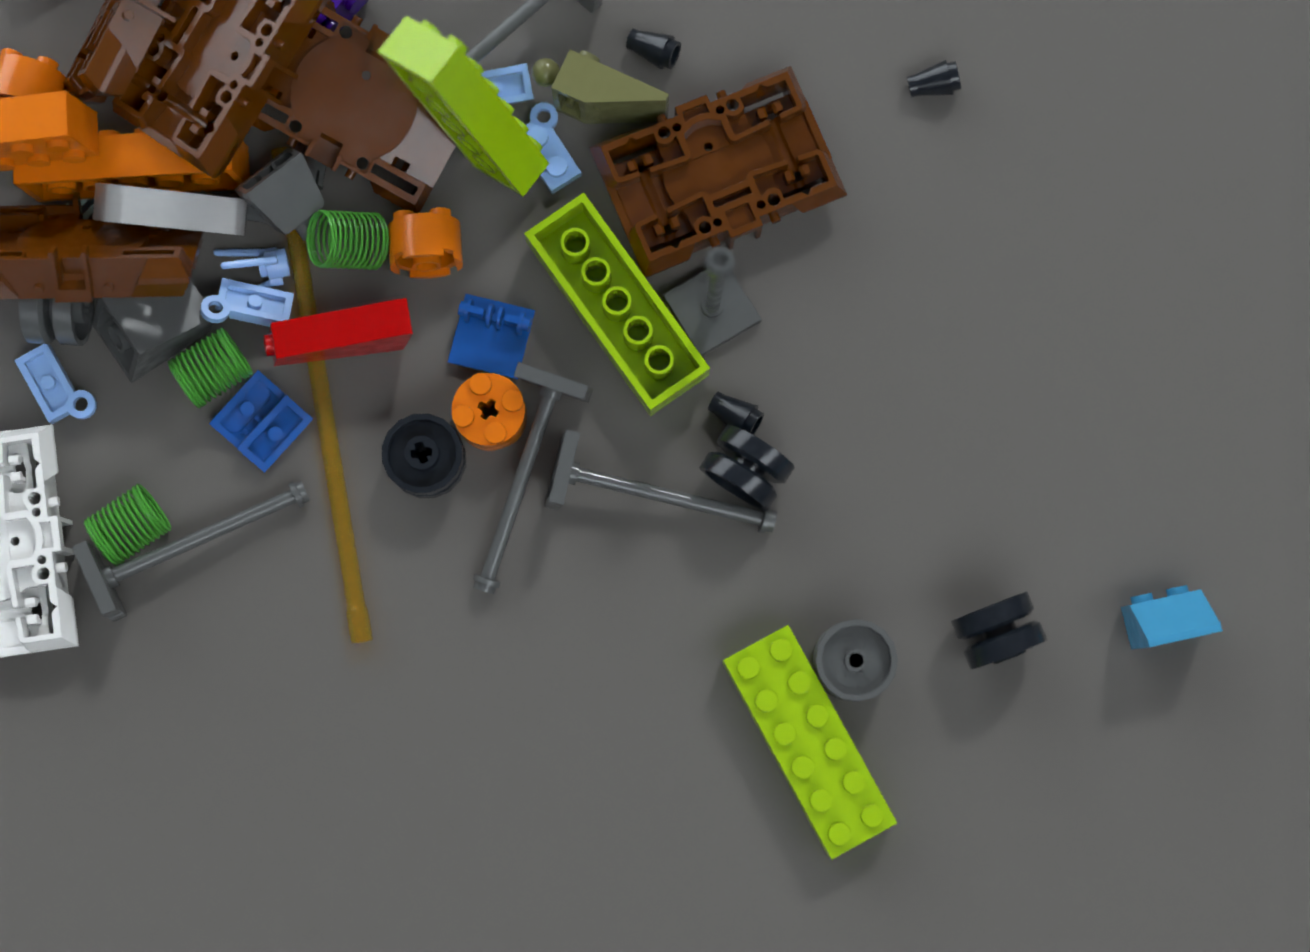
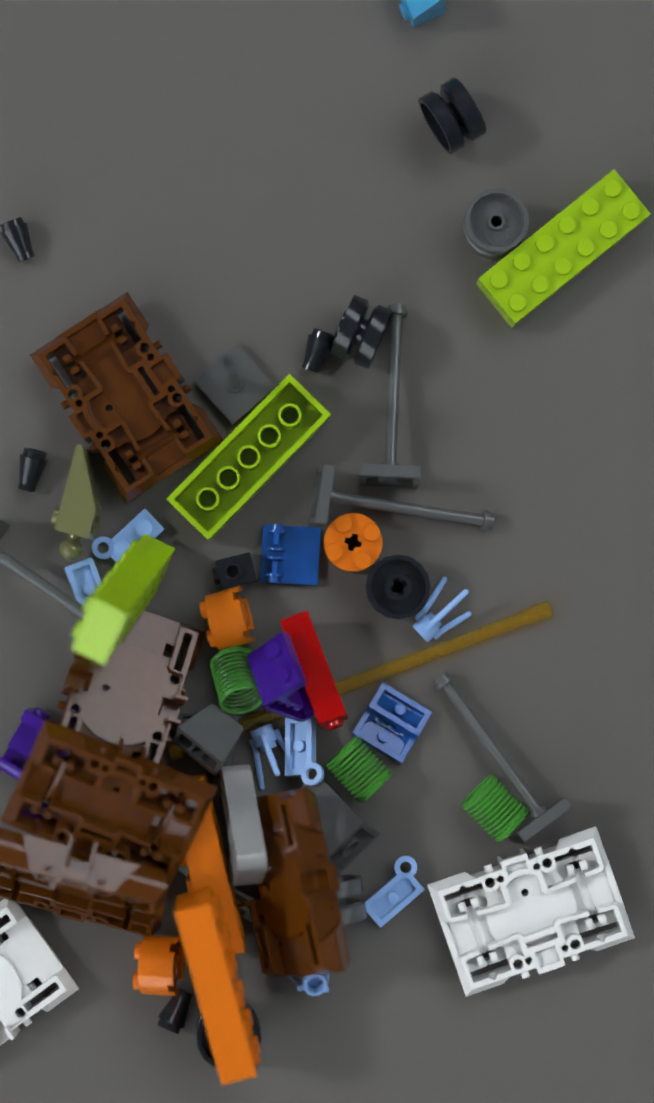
camera: 100 degrees left, 5 degrees up
(334, 283) = (280, 679): none -> dark purple piece
(371, 487) = (429, 624): none -> light blue plant
(483, 265) = (234, 571): none -> black brick

